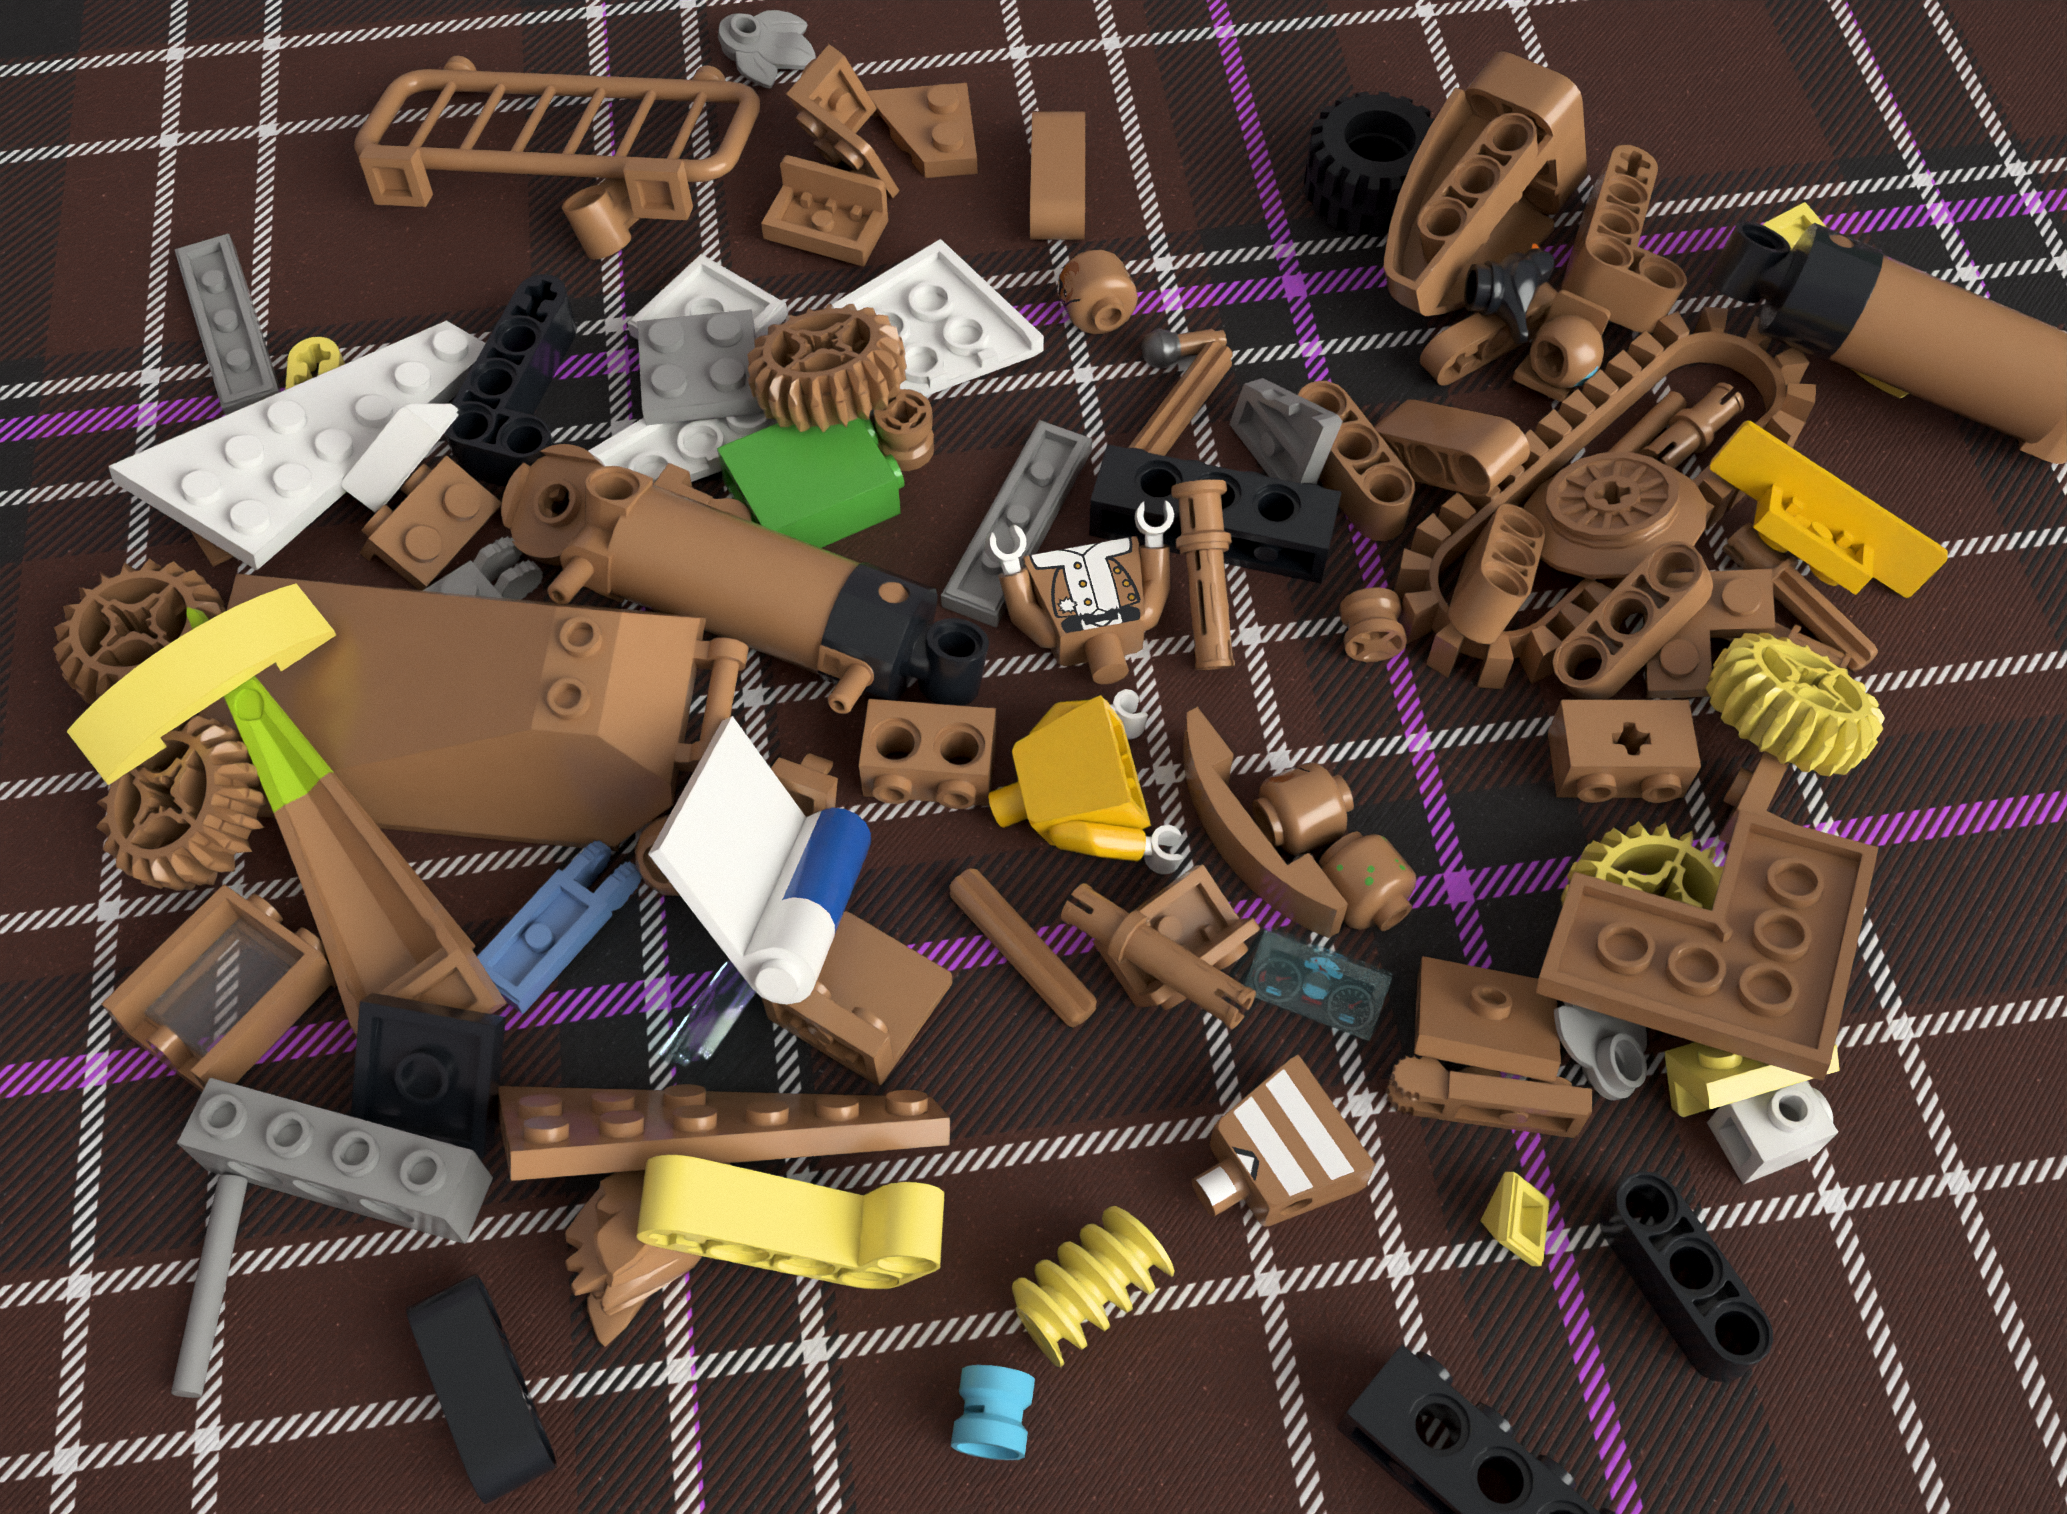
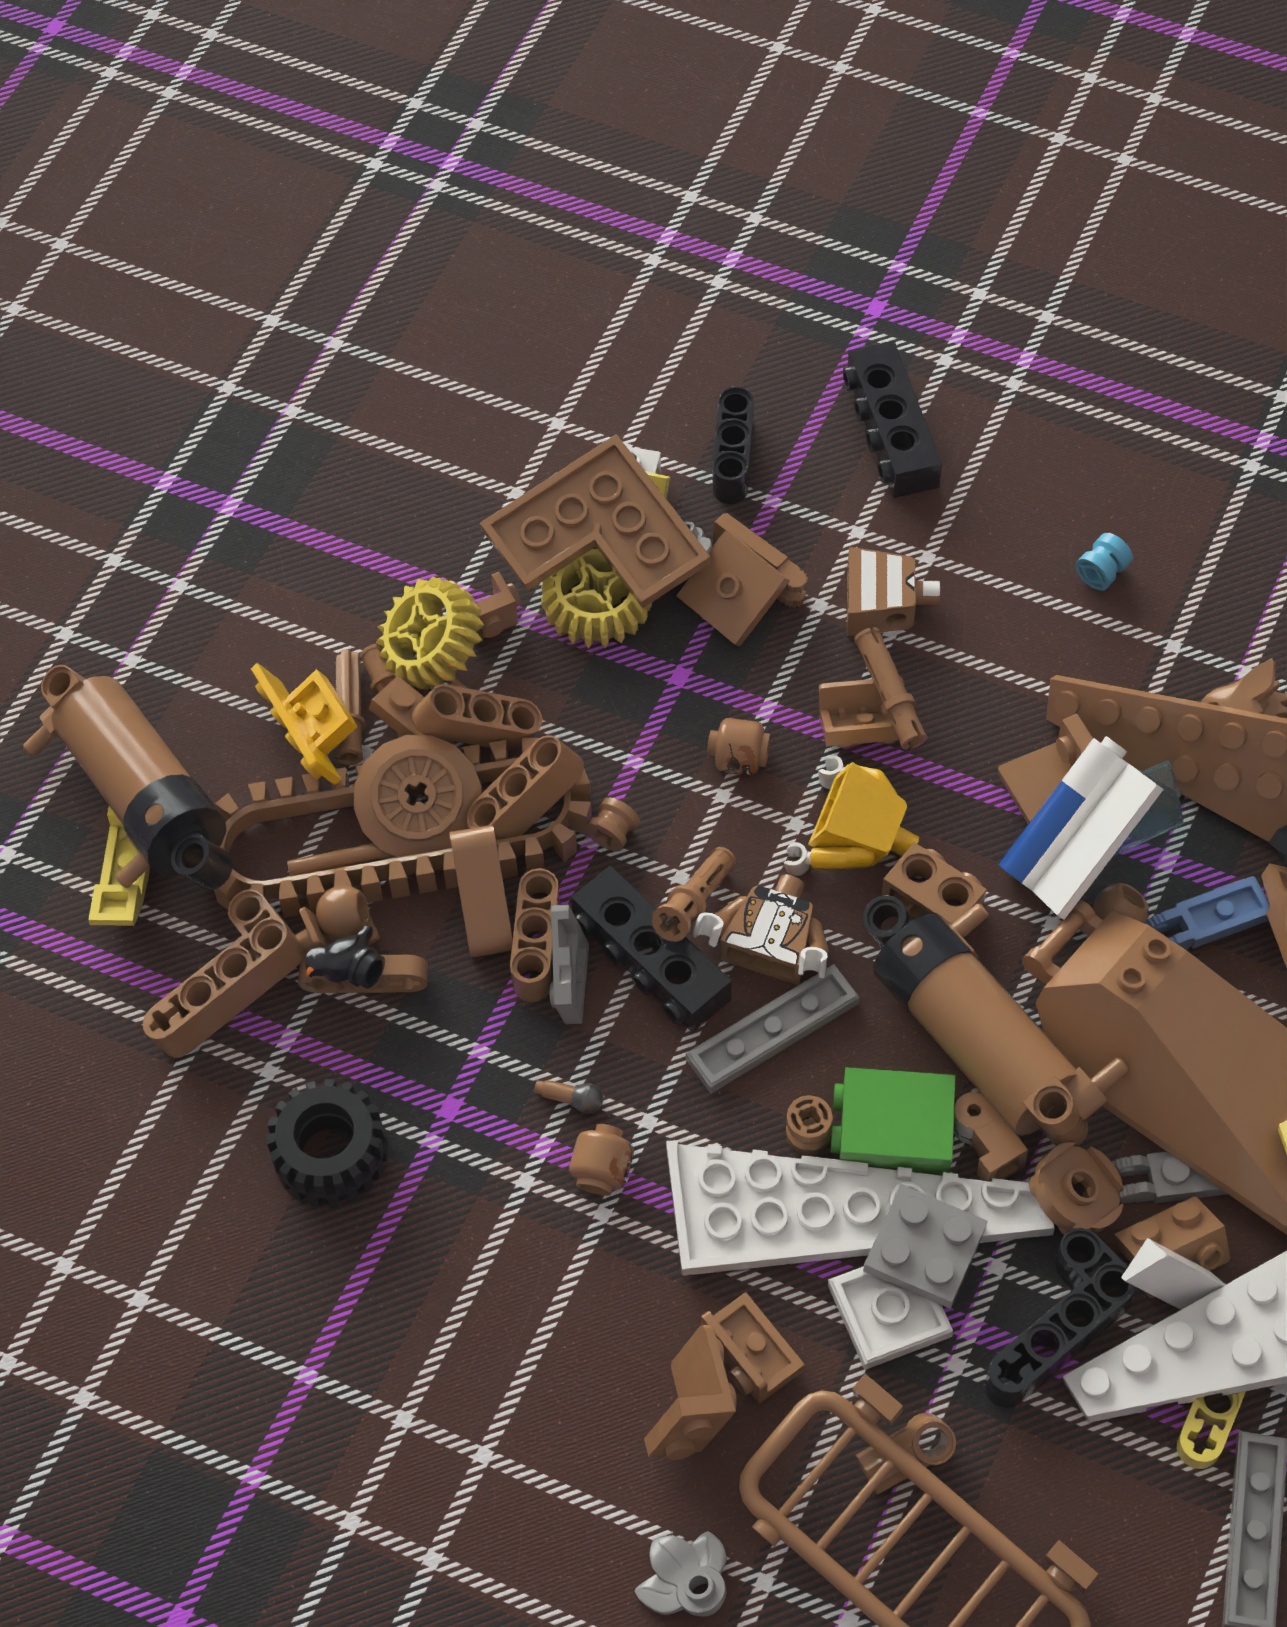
camera: 145 degrees left, 0 degrees up
(792, 1224) = (1158, 664): light yellow beam -> none
(808, 782) = (1021, 911): medium nougat tile -> none
(827, 367) = (884, 1147): medium nougat gear -> none
(931, 126) = (608, 1406): medium nougat wing -> none
(1023, 947) = (948, 767): medium nougat axle -> none
(1057, 175) = (552, 1285): medium nougat beam -> none
(1088, 1281) = (1023, 583): light yellow piece -> none
(1184, 399) = (608, 1047): medium nougat axle -> none
(1296, 889) = (779, 712): medium nougat slope -> none
(1318, 983) = (793, 666): clear light blue slope -> none
(1370, 879) = (735, 690): medium nougat head -> none
(1484, 179) = (244, 1059): medium nougat panel -> none
(1518, 1218) = (790, 509): light yellow slope -> none
(1623, 749) = (534, 673): medium nougat brick -> none
(1695, 428) = (305, 837): medium nougat pin -> none

